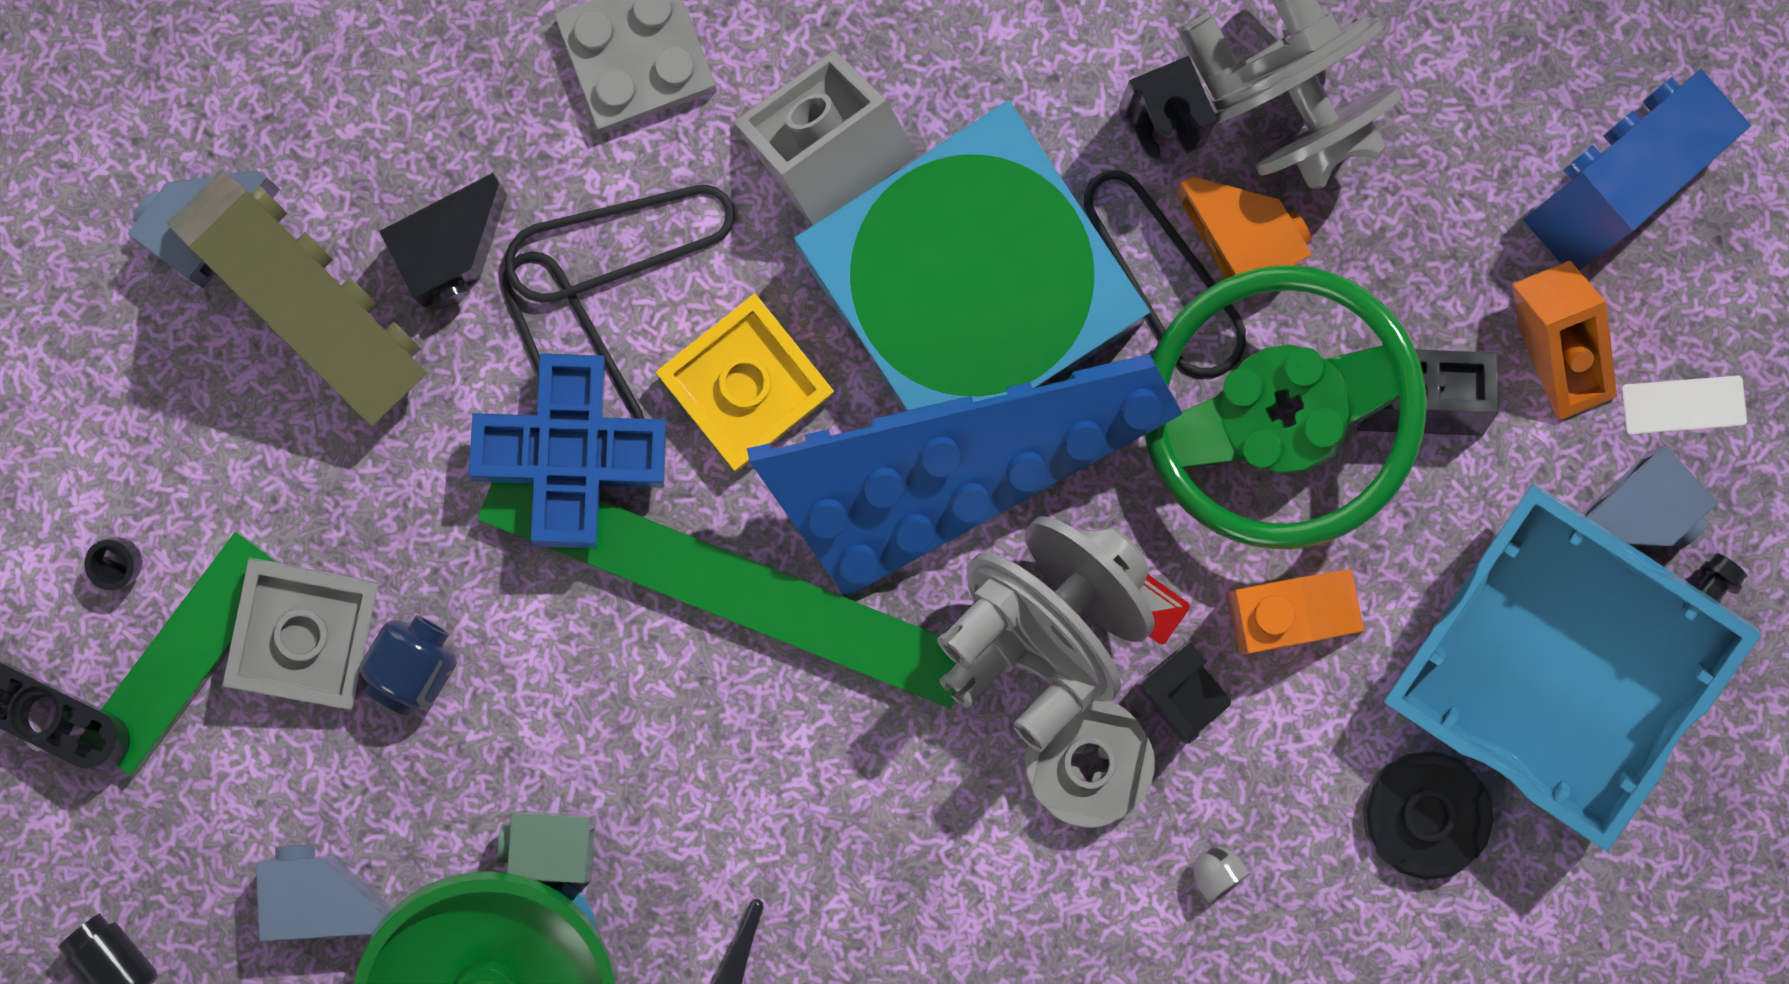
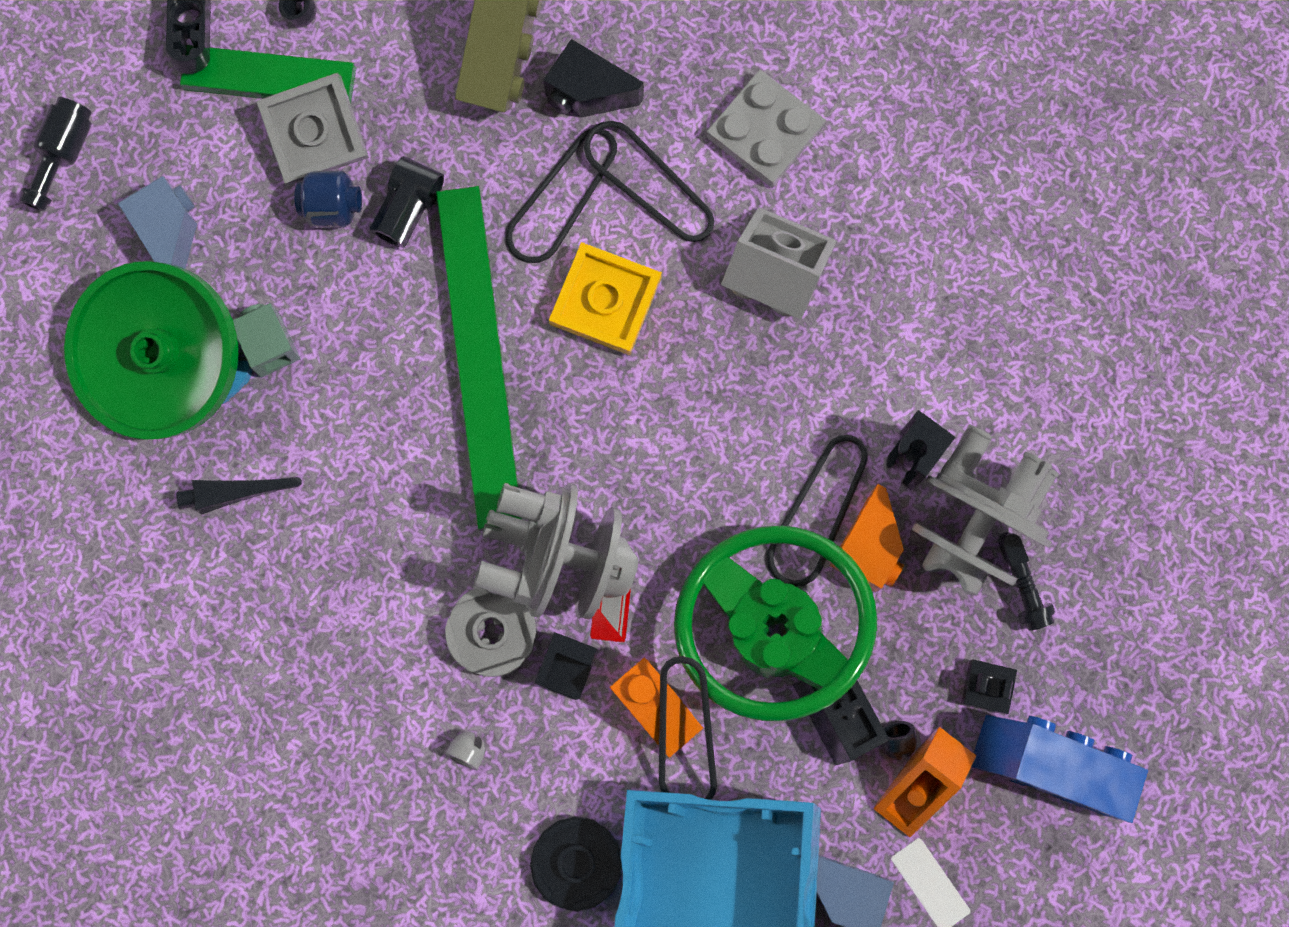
camera: 65 degrees right, 5 degrees down
(460, 553) = (410, 190): none -> black piece
(568, 450) = (504, 217): blue plate -> none
(941, 469) = (617, 438): blue wing -> none
(972, 269) = (743, 393): green tile -> none
(1359, 559) = (707, 722): none -> black piece
(1441, 86) = (1015, 556): none -> black hinge
(1493, 196) = (989, 686): none -> black tile
(1497, 329) = (901, 739): none -> black hinge

